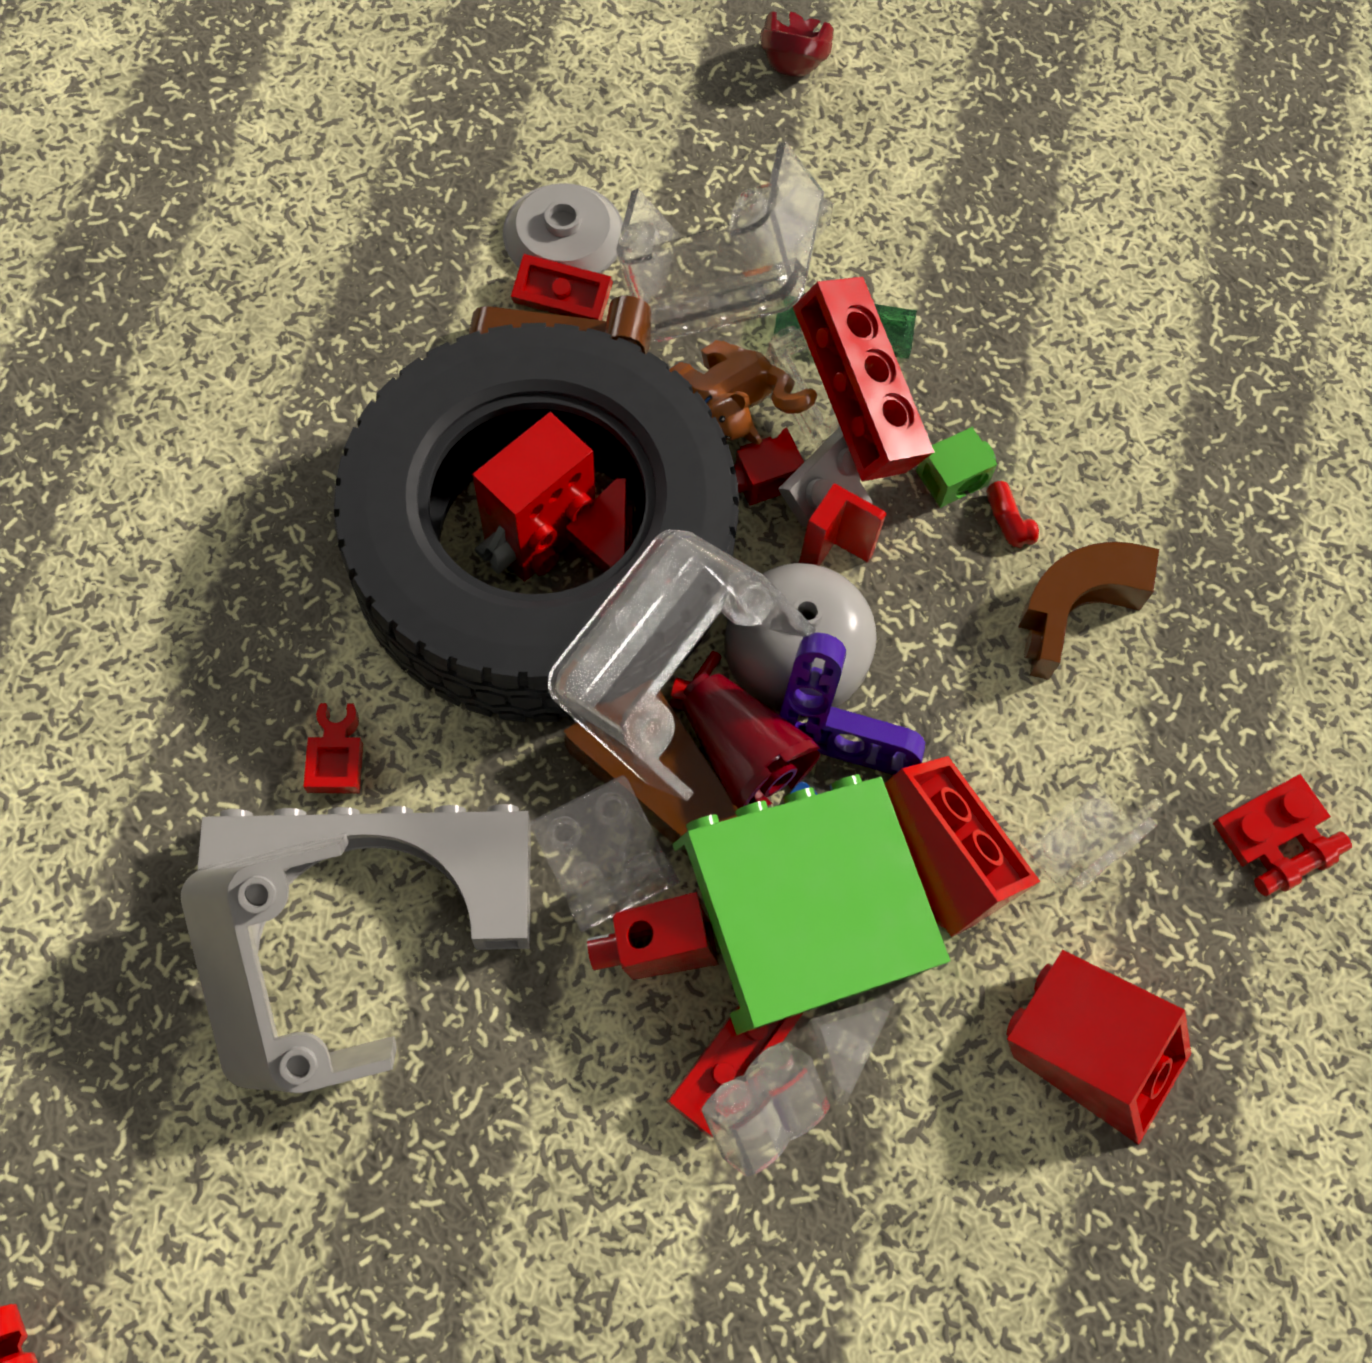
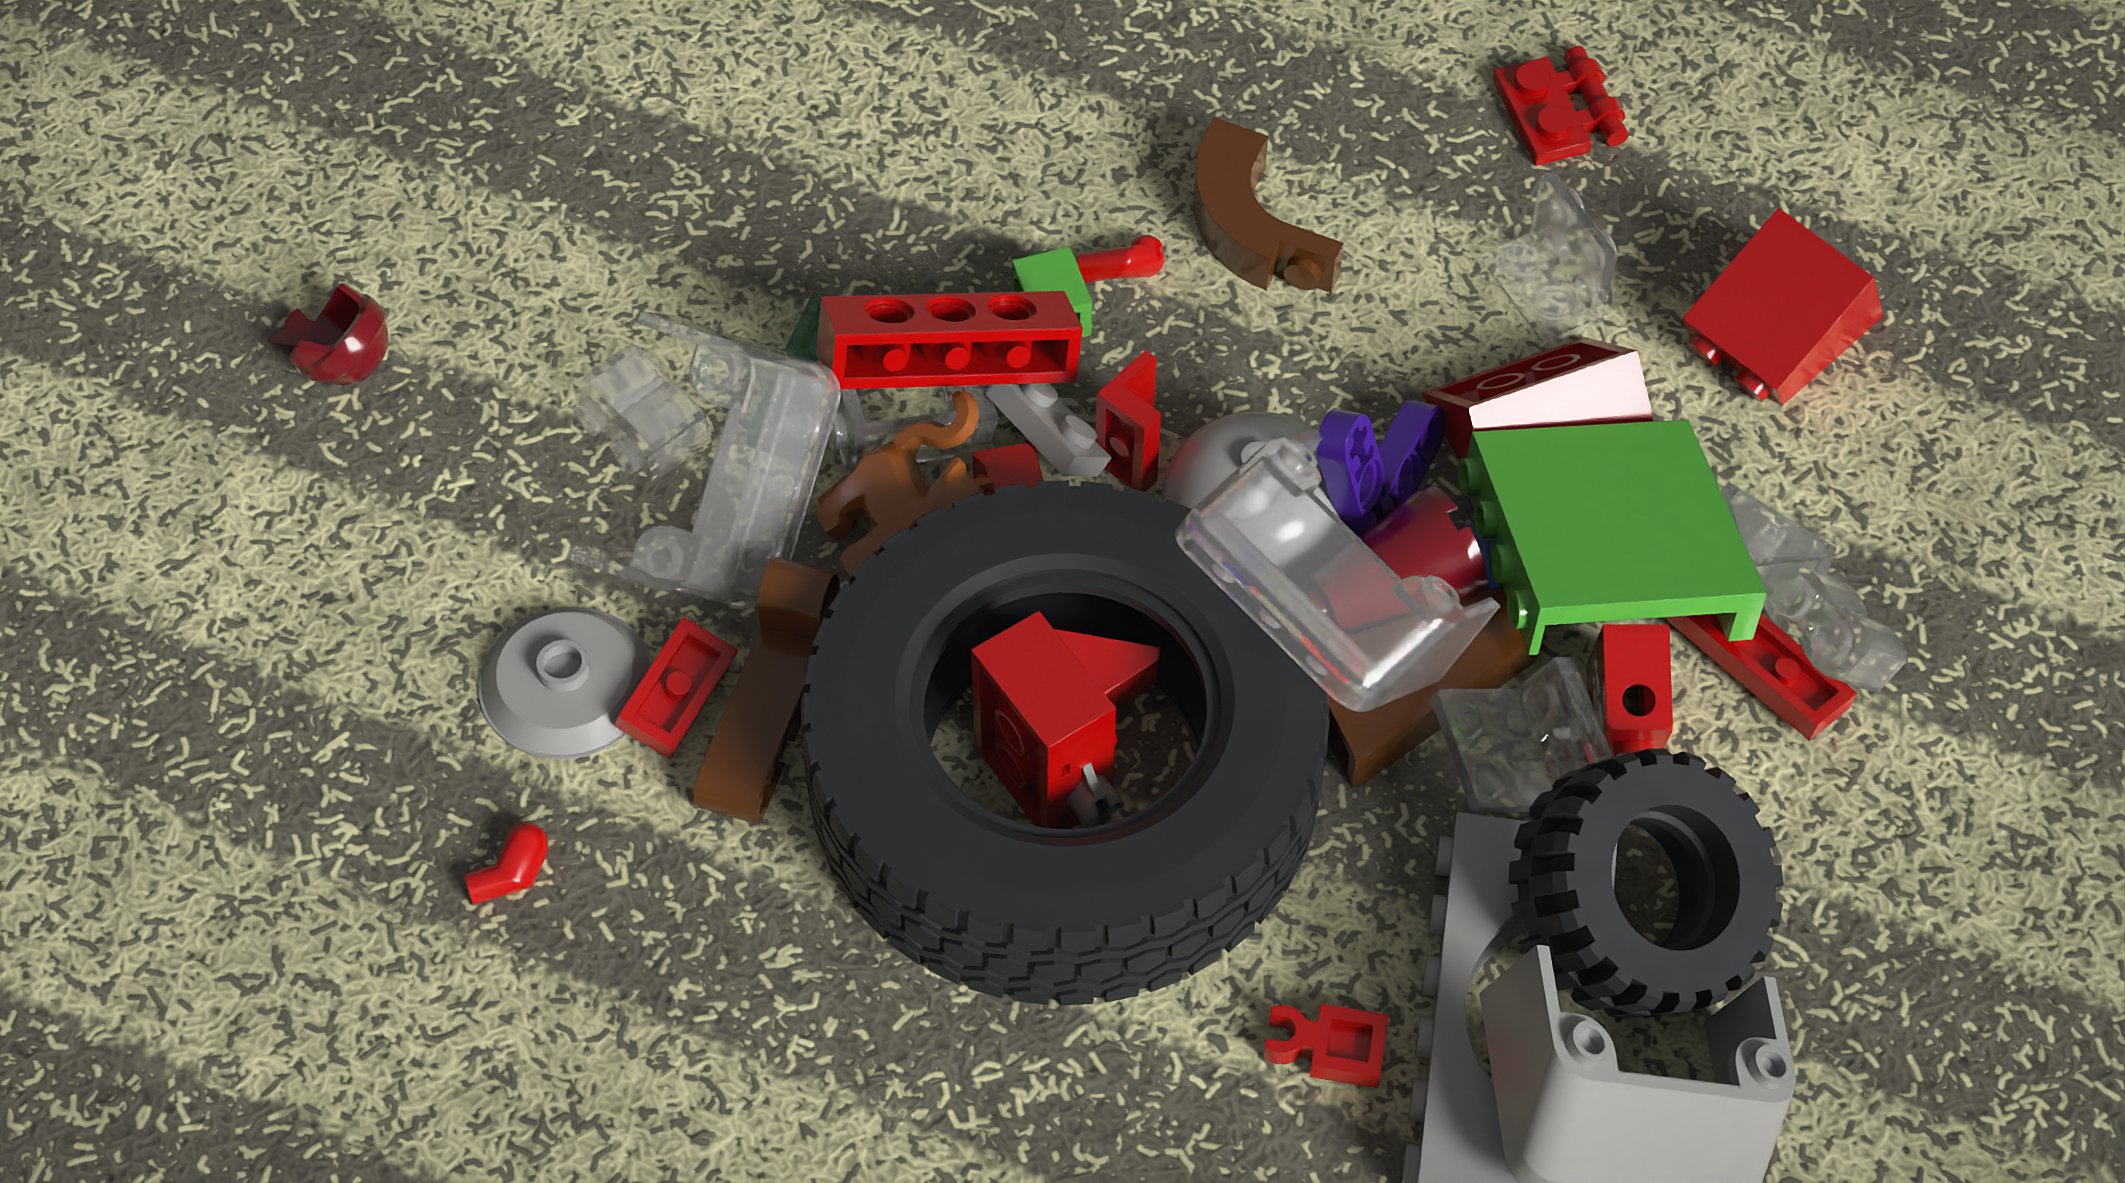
camera: 75 degrees left, 10 degrees down
(403, 990) = (1720, 870): none -> black tyre
(414, 228) = (516, 867): none -> red arm

